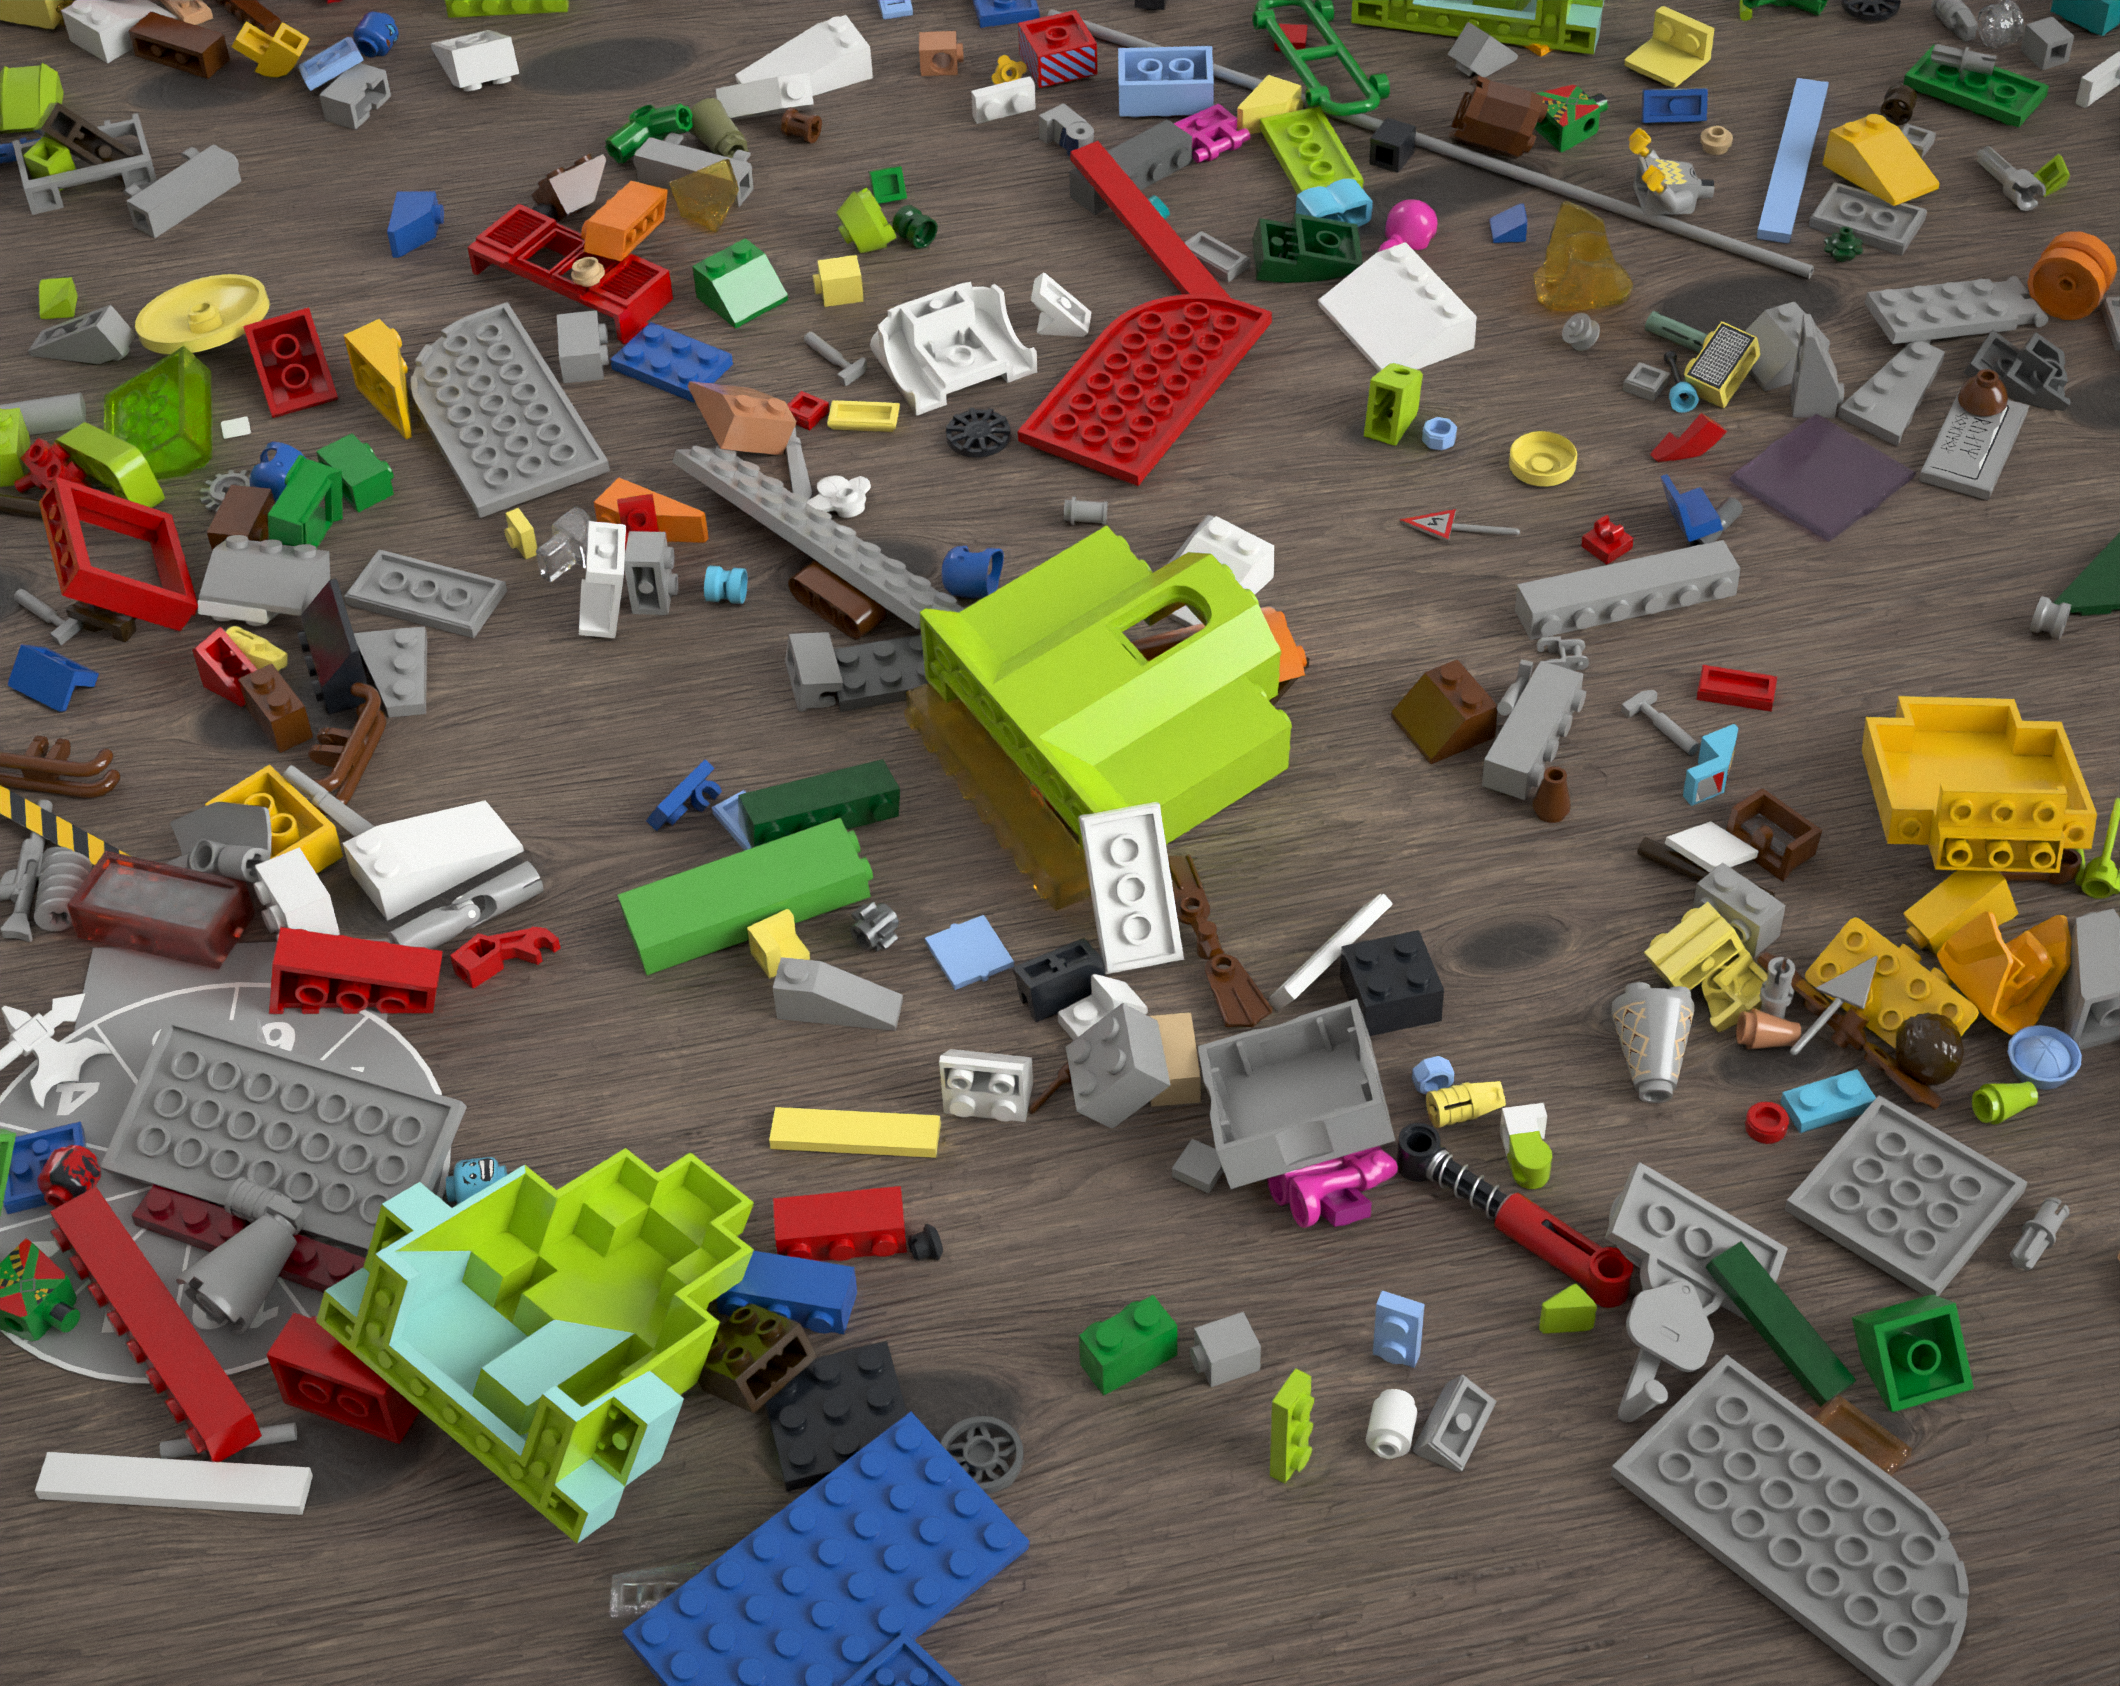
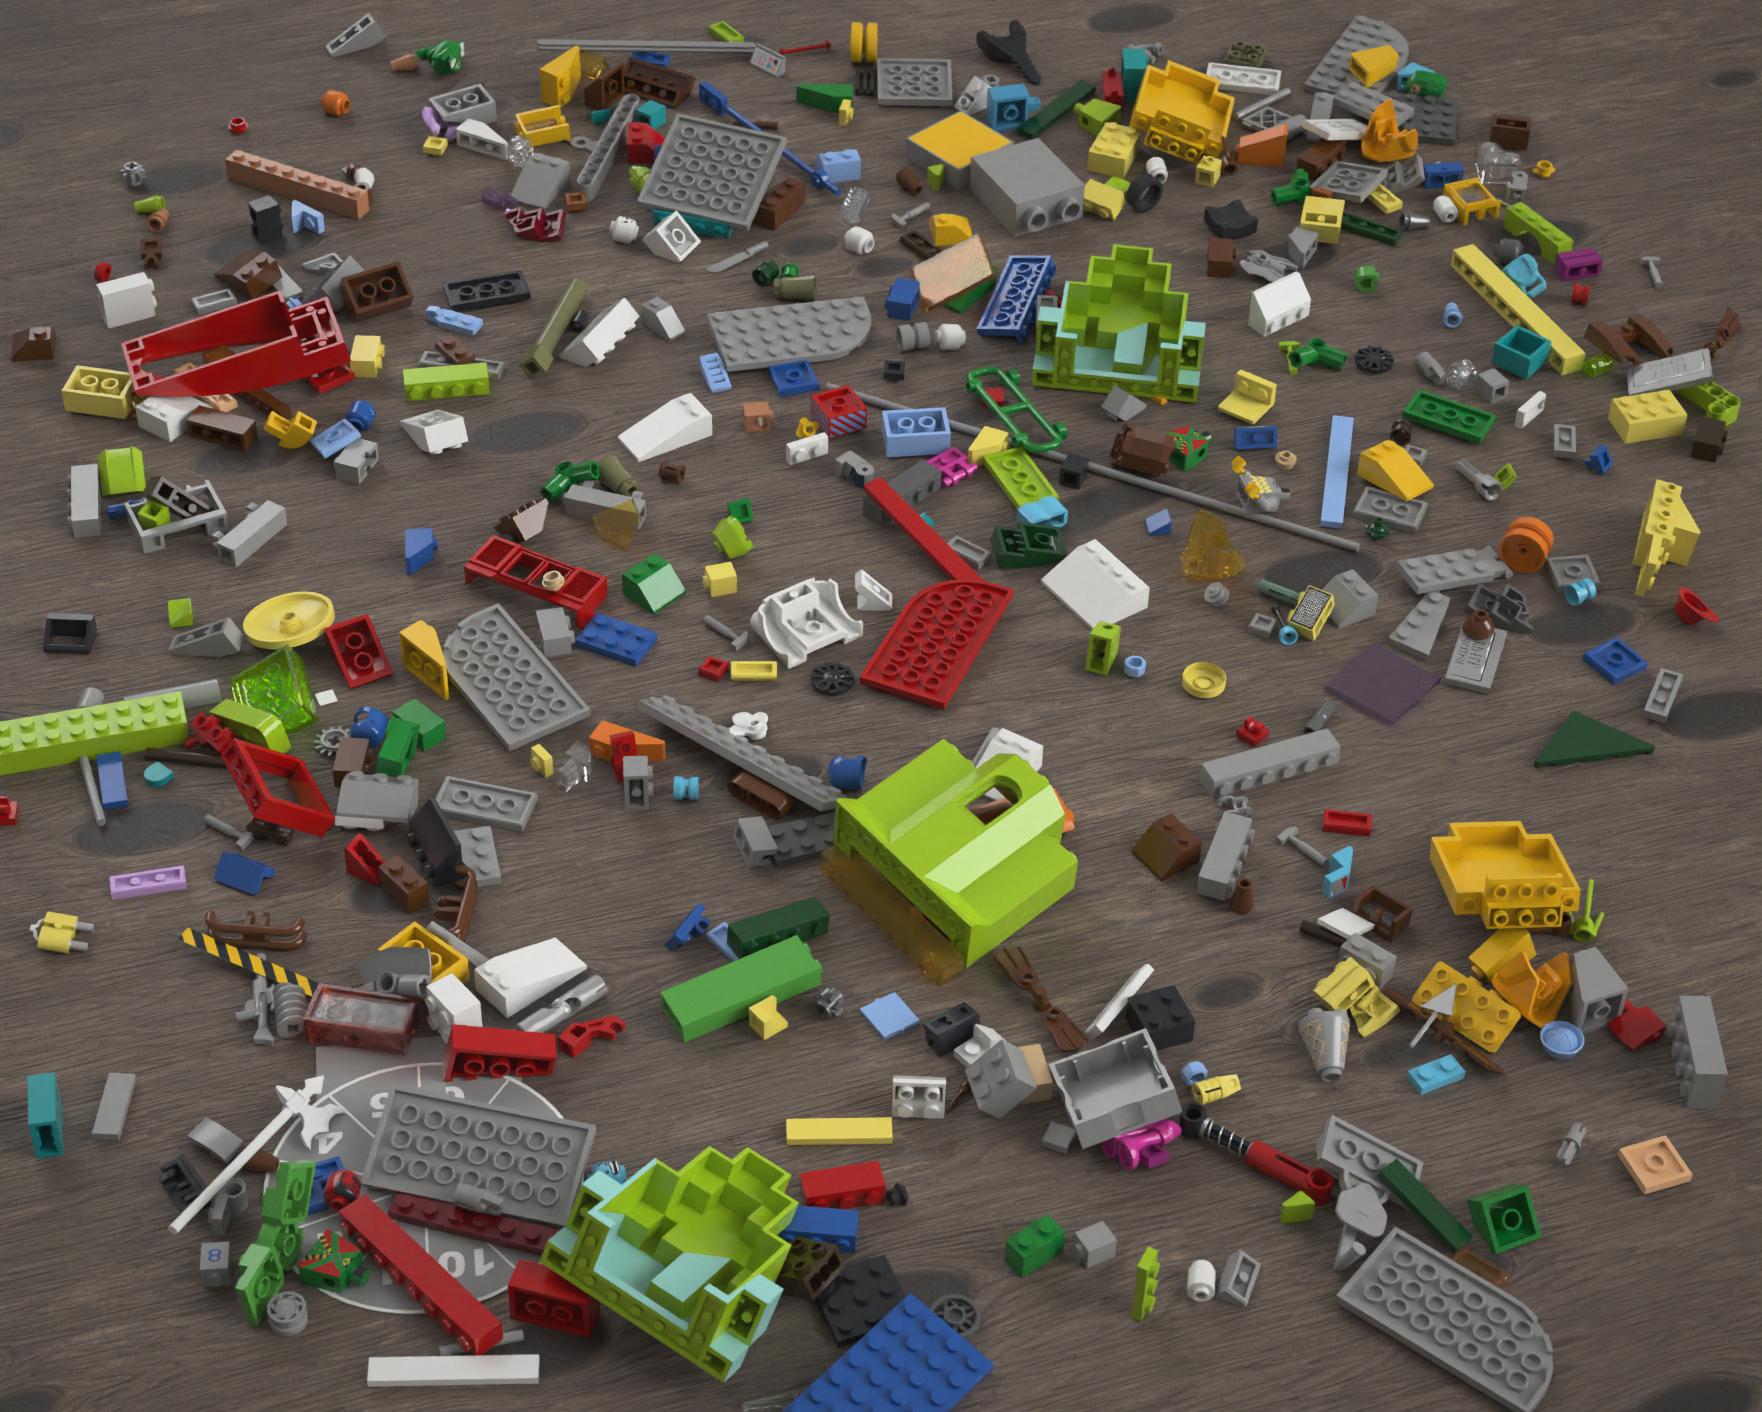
camera: 10 degrees left, 5 degrees down
(240, 1272) = (471, 1241): light grey cone -> none
(258, 649) = (383, 846): light yellow hinge -> none
(603, 580) = (609, 802): white panel -> none
(624, 220) = (568, 544): orange brick -> none
(744, 417) = (676, 675): nougat slope -> none
(767, 96) = (646, 451): white slope -> none
(797, 469) = (714, 704): light grey piece -> none
(832, 996) = (809, 1048): light grey slope -> none
(914, 226) = (765, 540): dark green wheel -> none
(1085, 511) = (913, 728): light grey pin -> none
(1131, 887) = (992, 968): white tile -> none
(1398, 1329) = (1198, 1224): light blue plate -> none
(1411, 223) = (1093, 525): dark pink hair -> none
(1441, 524) = (1145, 727): light grey piece -> none
(1515, 690) = (1211, 830): light grey piece -> none
(1522, 1137) = (1255, 1111): lime leg -> none
(1691, 511) = (1304, 710): blue panel -> none
(1692, 443) = (1300, 664): red slope -> none
(1764, 1030) = (1393, 1034): nougat cone -> none
(1766, 1122) = (1400, 1089): red tile -> none
(1777, 989) = (1397, 1010): light grey pin -> none
(1814, 376) = (1371, 620): light grey slope -> none
(1906, 1197) = (1489, 1127): light grey plate -> none
(1929, 1048) = (1493, 1038): dark brown hair -> none
(1963, 59) = (1440, 400): light grey axle -> none
(2001, 1101) = (1540, 1067): lime cone -> none
(2050, 617) = (1536, 768): light grey wheel -> none

